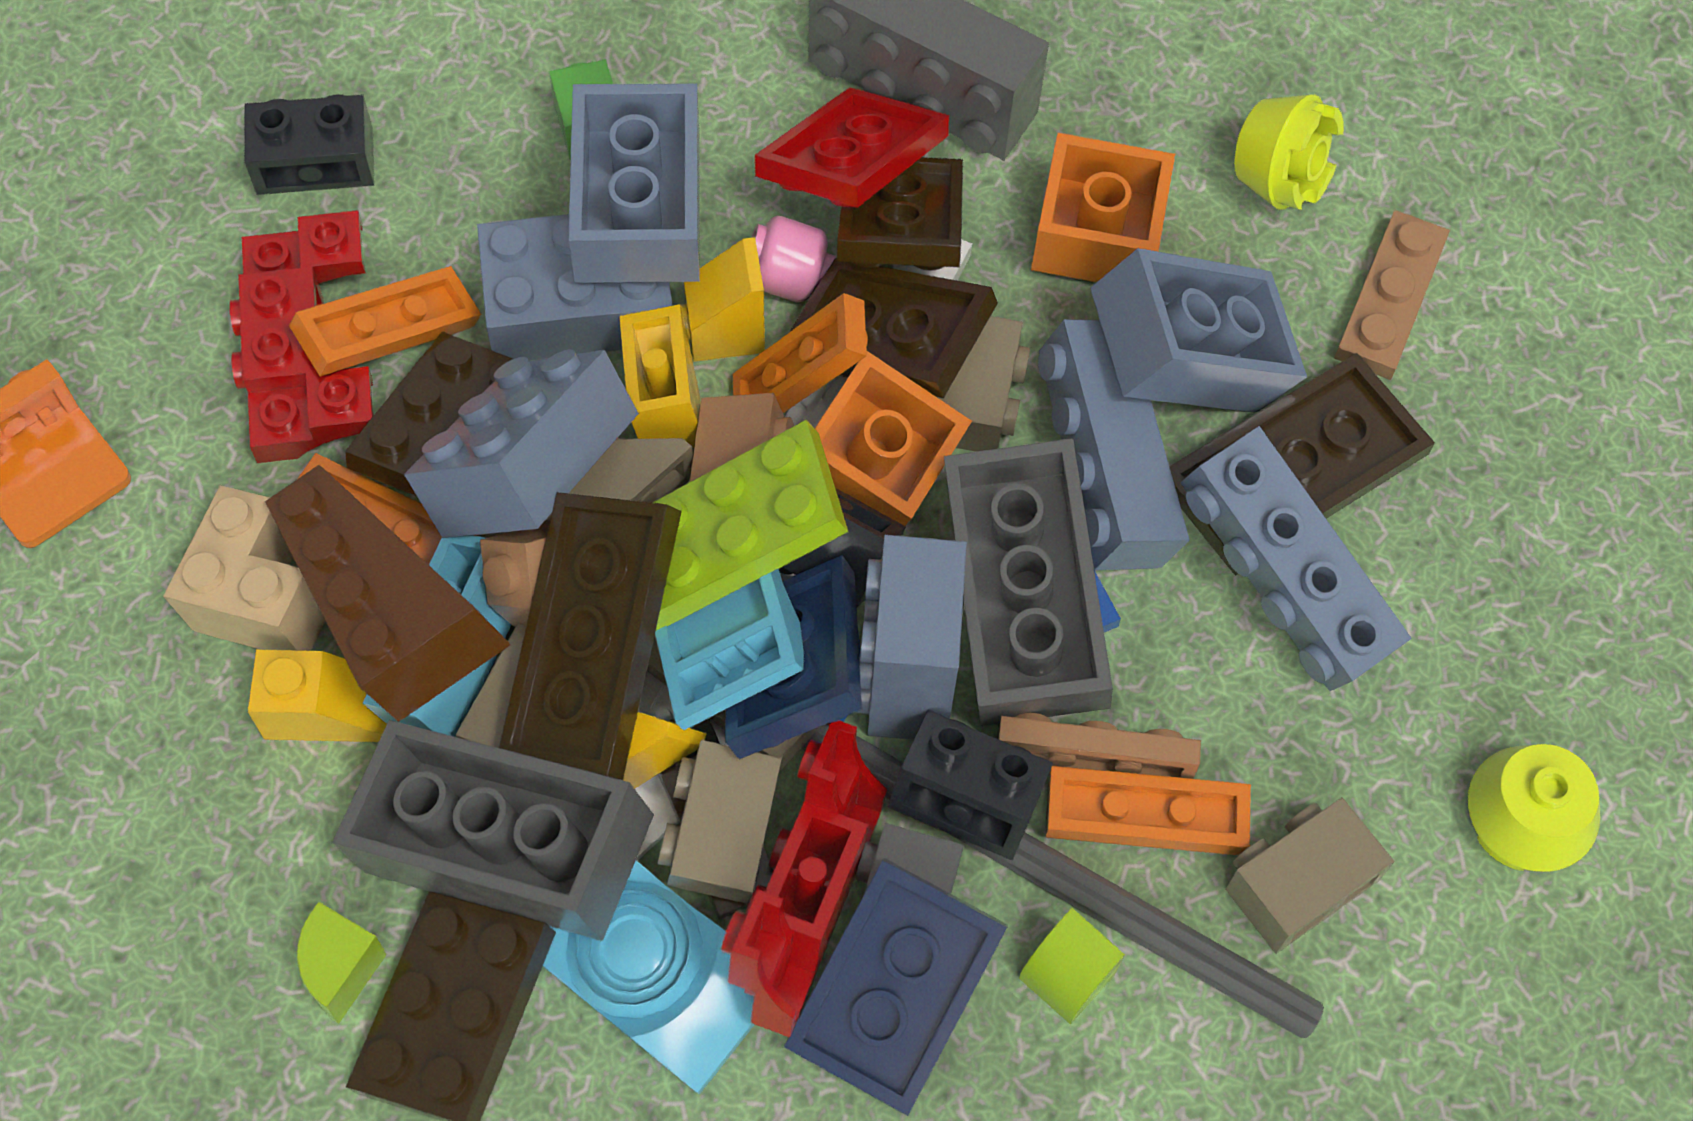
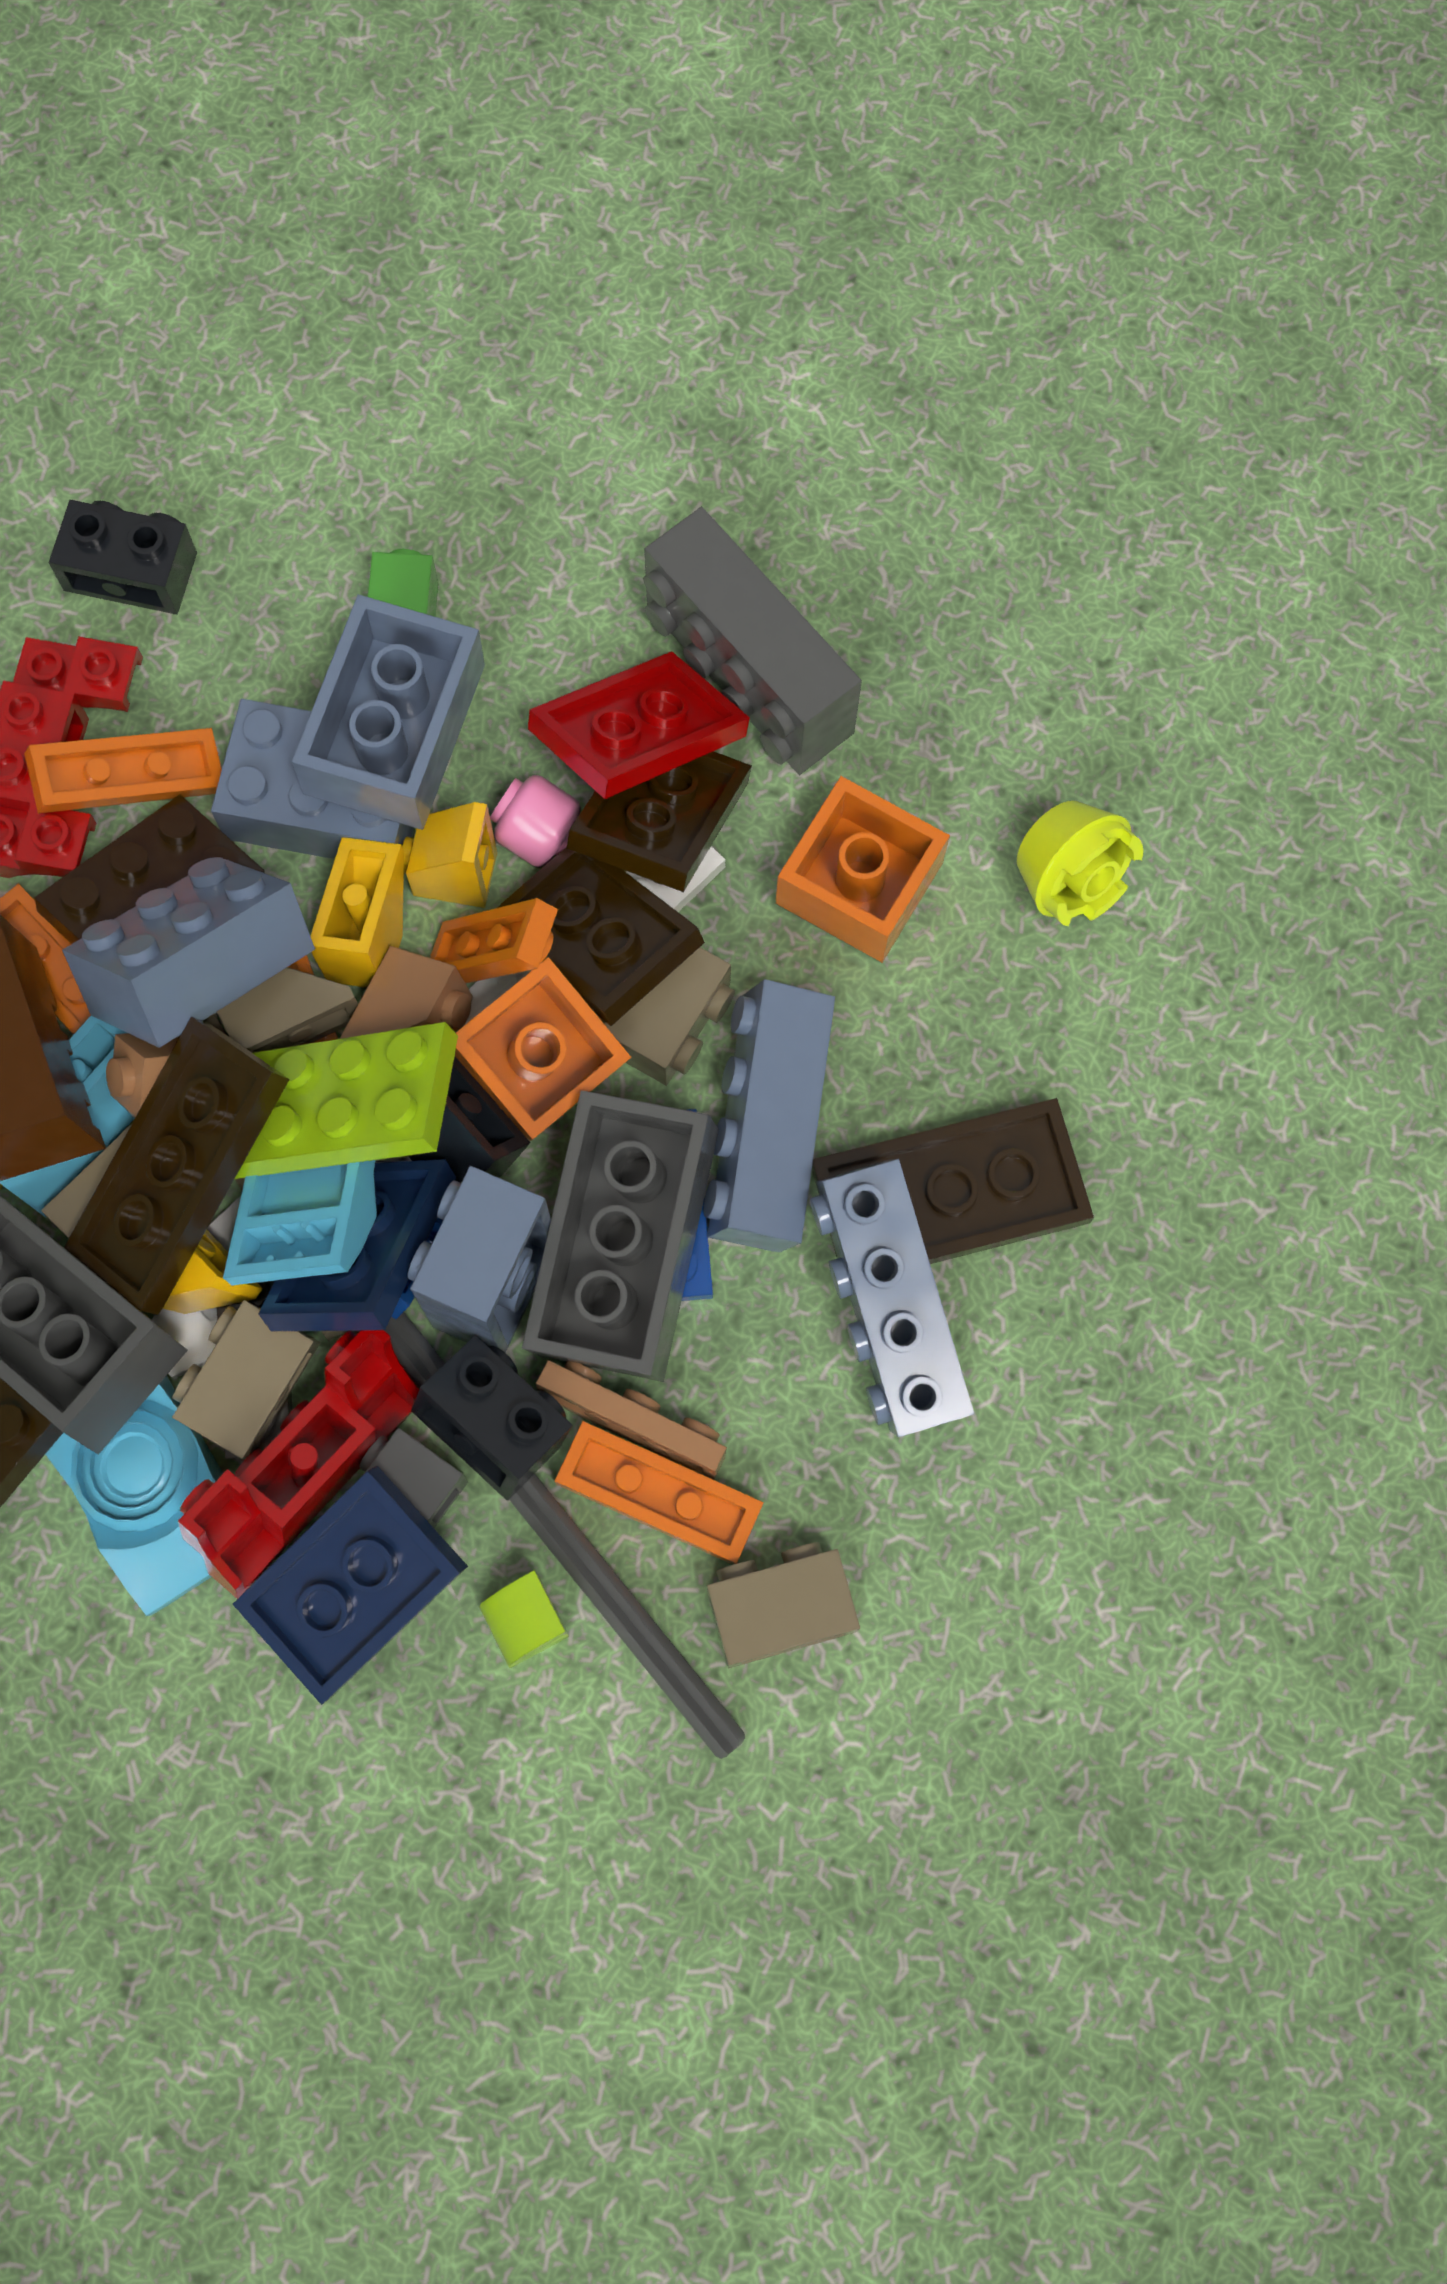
camera: 20 degrees right, 10 degrees up
(1197, 332) = (892, 1033): sand blue brick -> none
(1393, 293) = (1127, 1042): medium nougat plate -> none
(1535, 807) = (1030, 1616): neon yellow cone -> none

